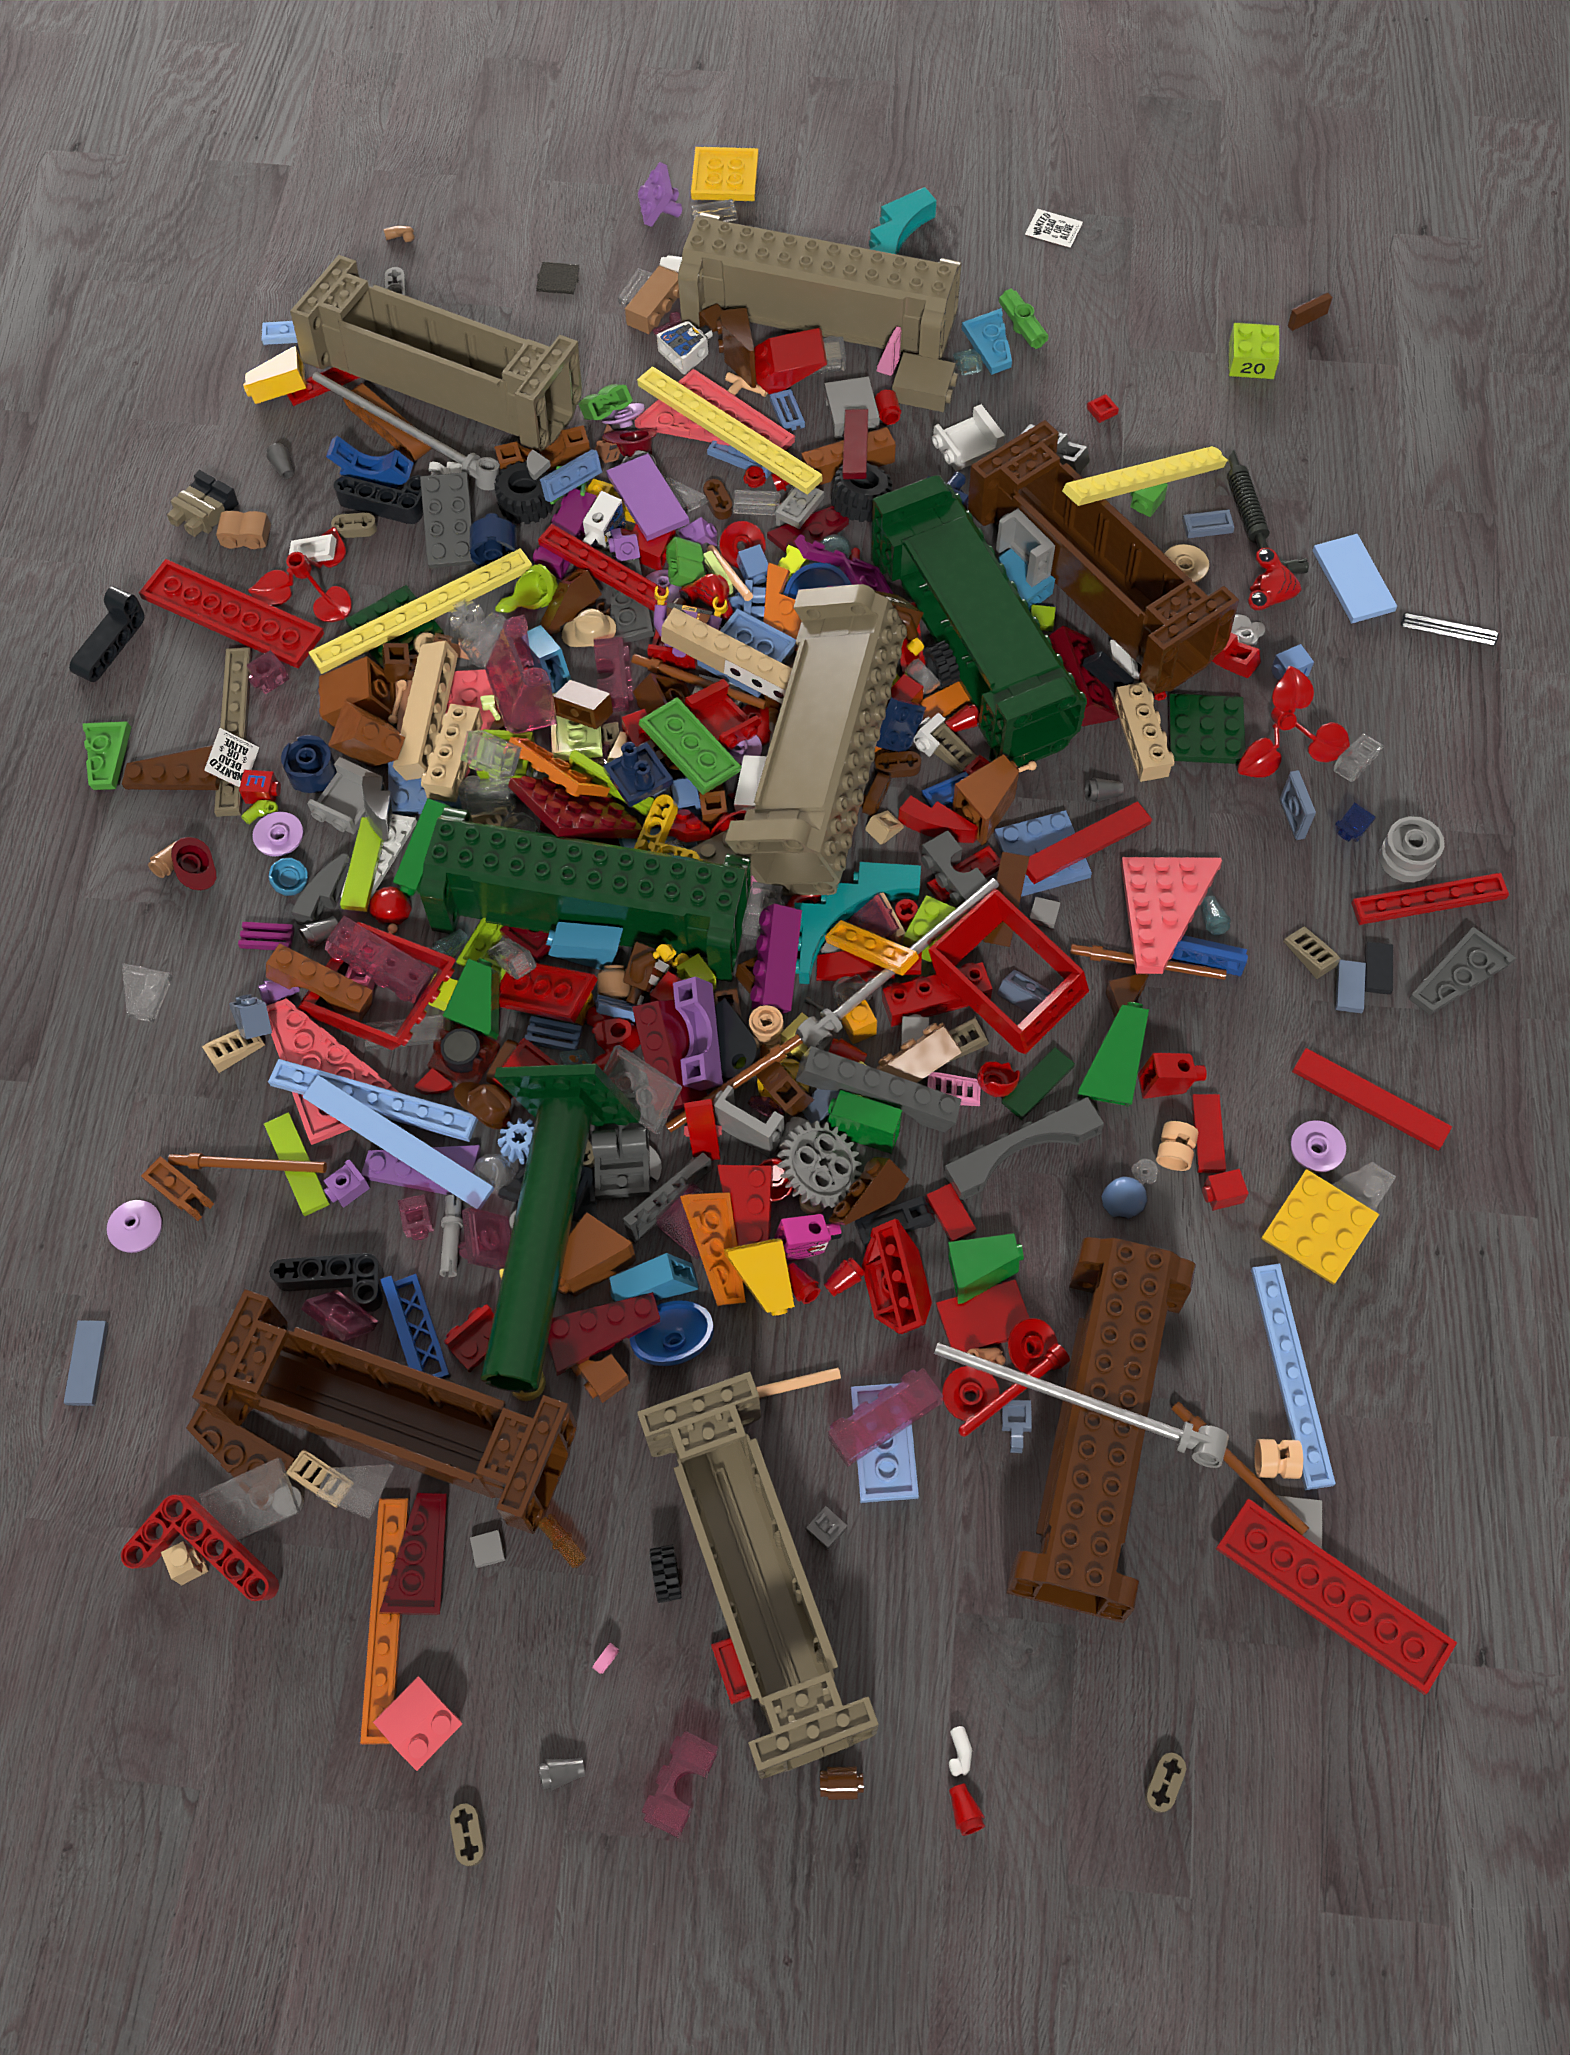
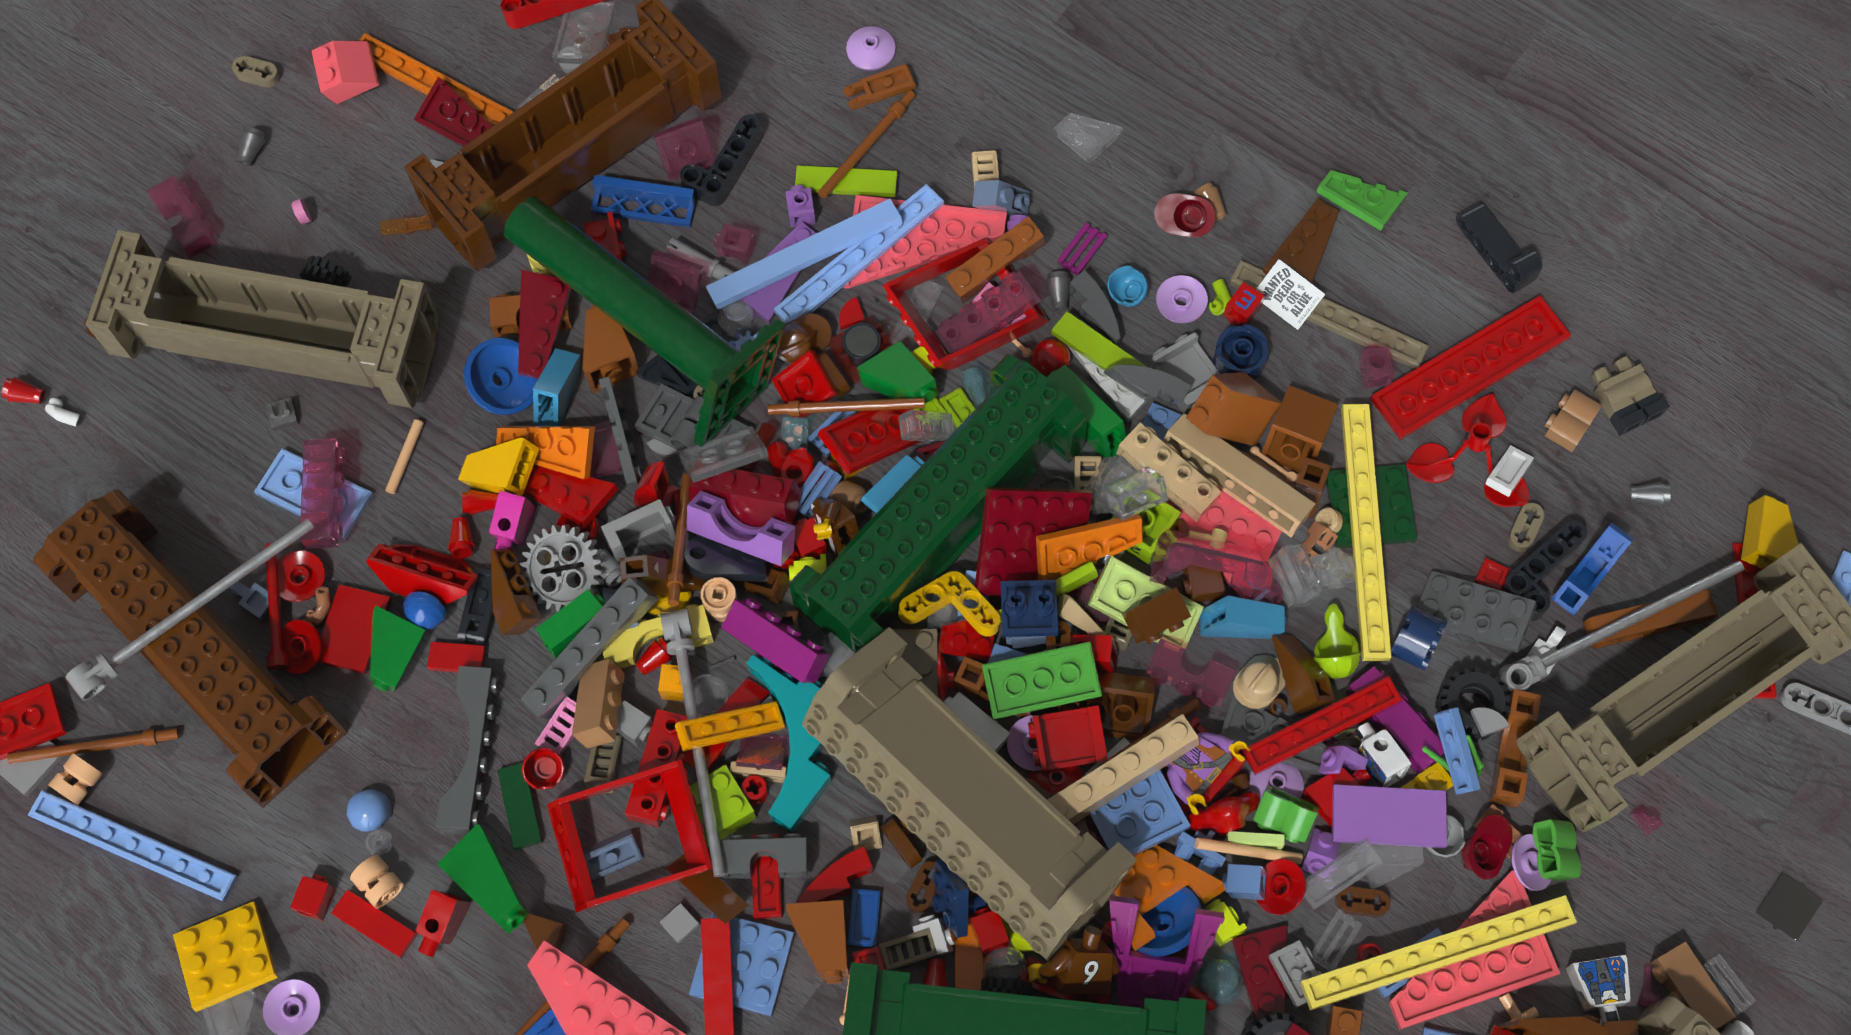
camera: 120 degrees right, 5 degrees up
(408, 530) = (1492, 574): none -> red tile
(525, 1011) = (795, 408): none -> dark orange bar
(705, 507) = (1341, 873): none -> clear tile
(933, 1257) = (423, 610): none -> blue piece

